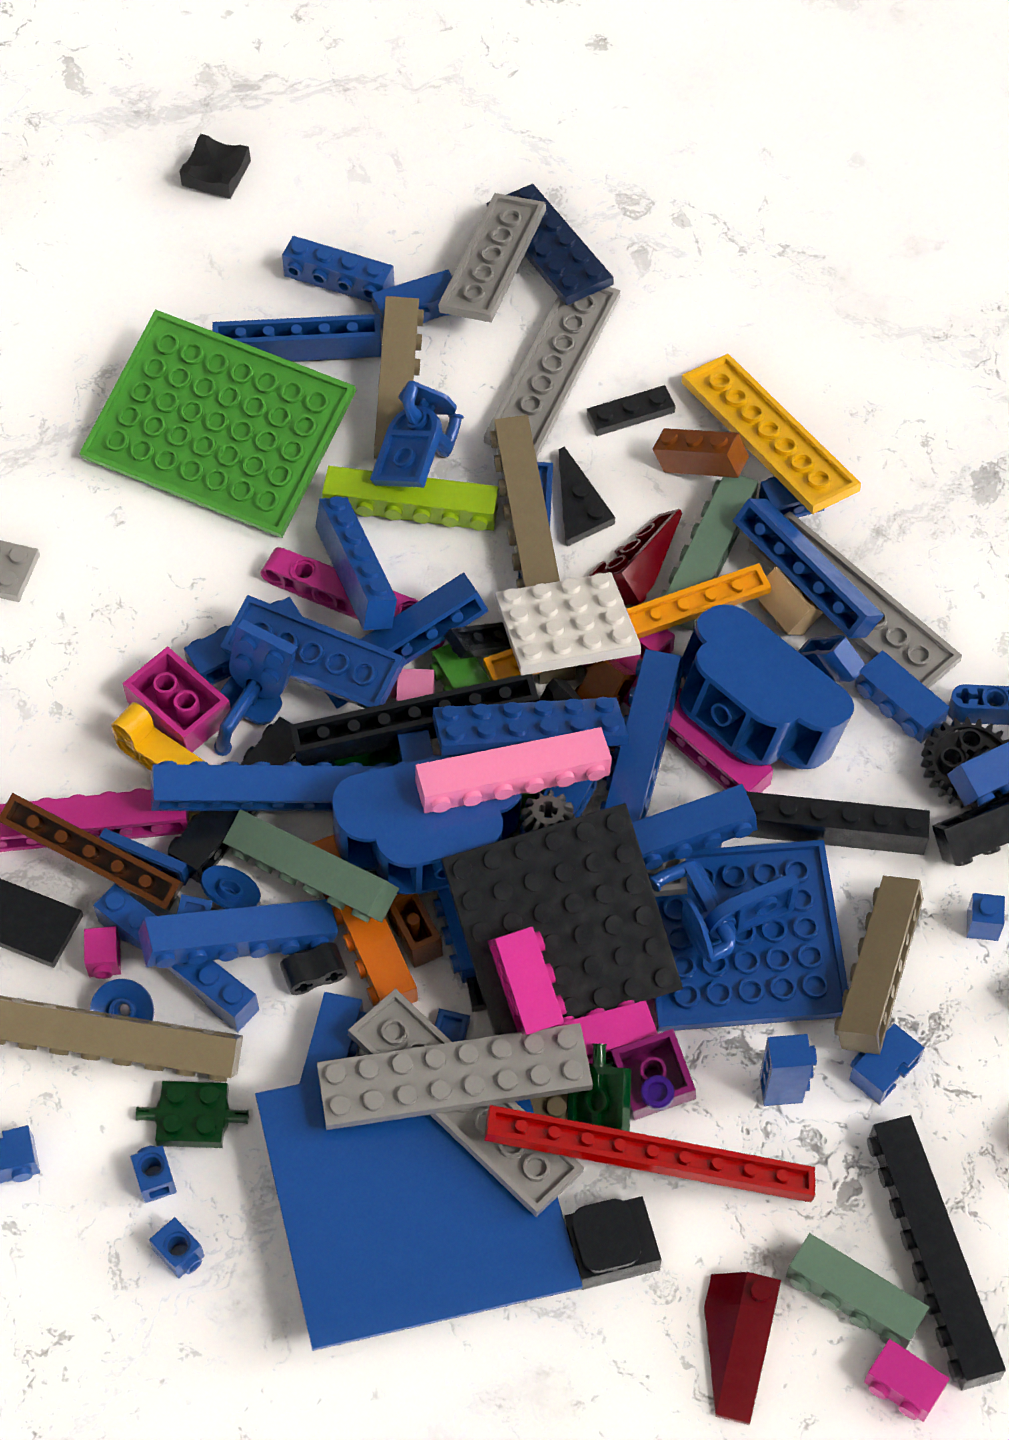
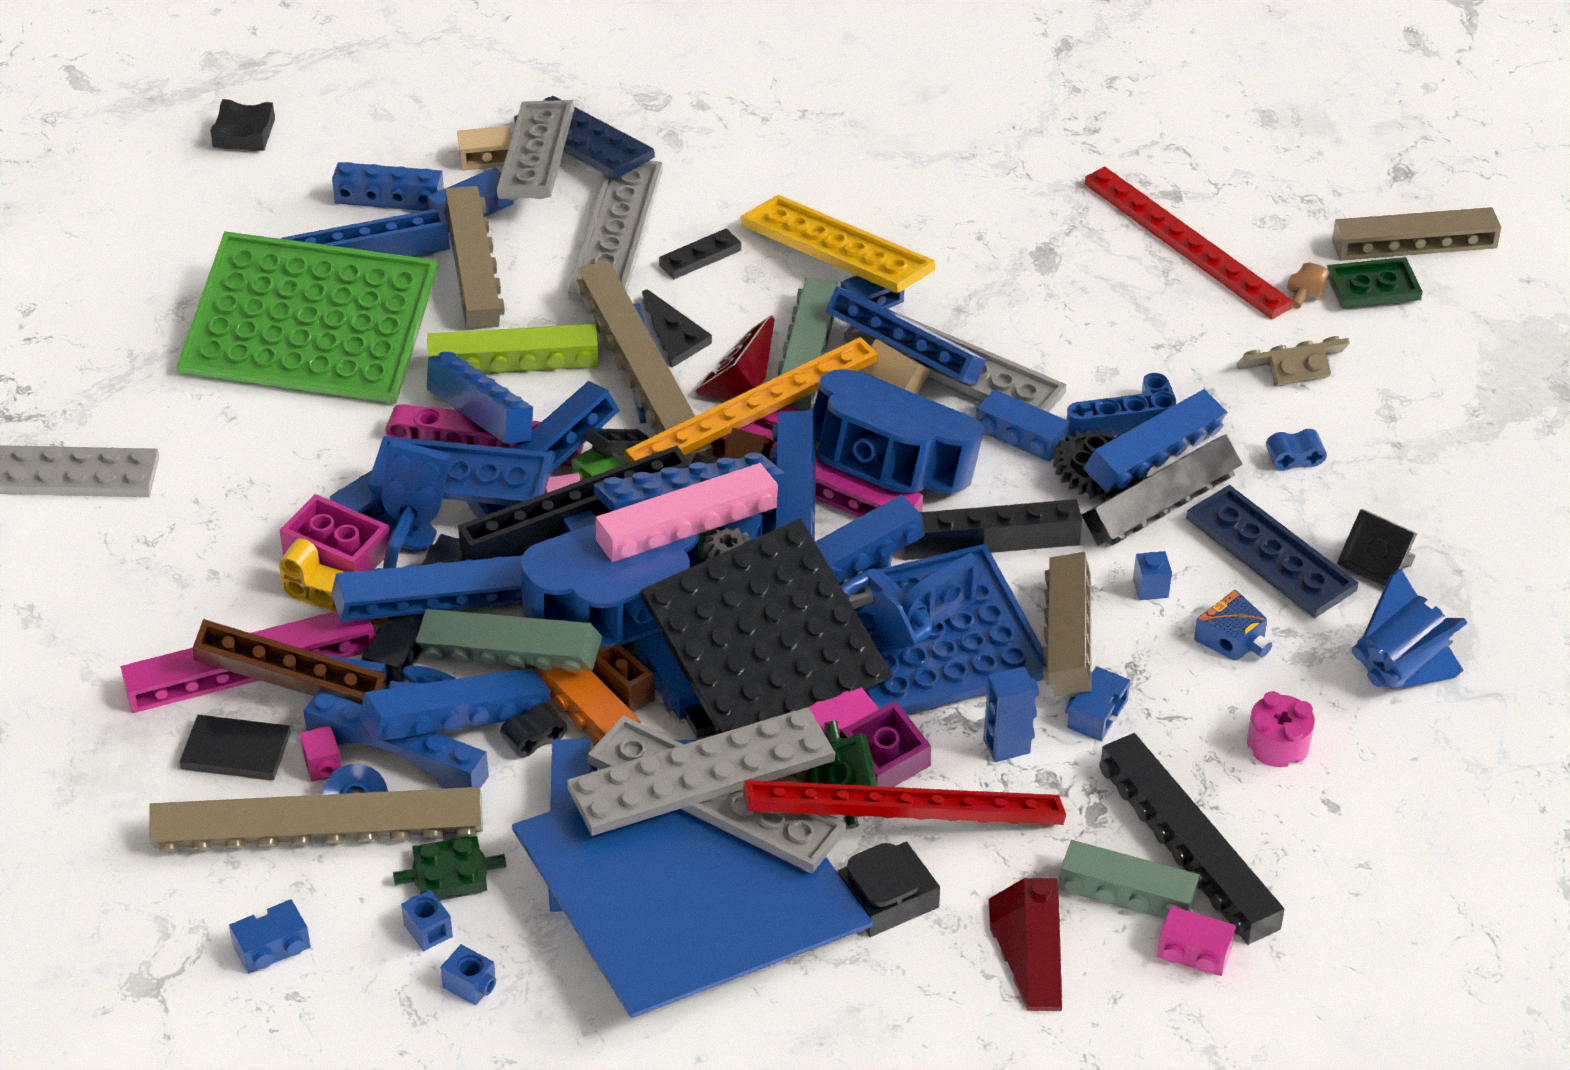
camera: 15 degrees left, 15 degrees down
(416, 437) = (508, 290): blue plate -> none
(445, 237) = (483, 147): none -> tan brick
(527, 980) = (748, 674): dark pink brick -> none
(567, 623) = (697, 407): white plate -> none
(657, 1092) = (896, 753): dark purple tile -> none
(701, 452) = (778, 267): dark orange brick -> none
(834, 657) = (955, 394): blue brick -> none

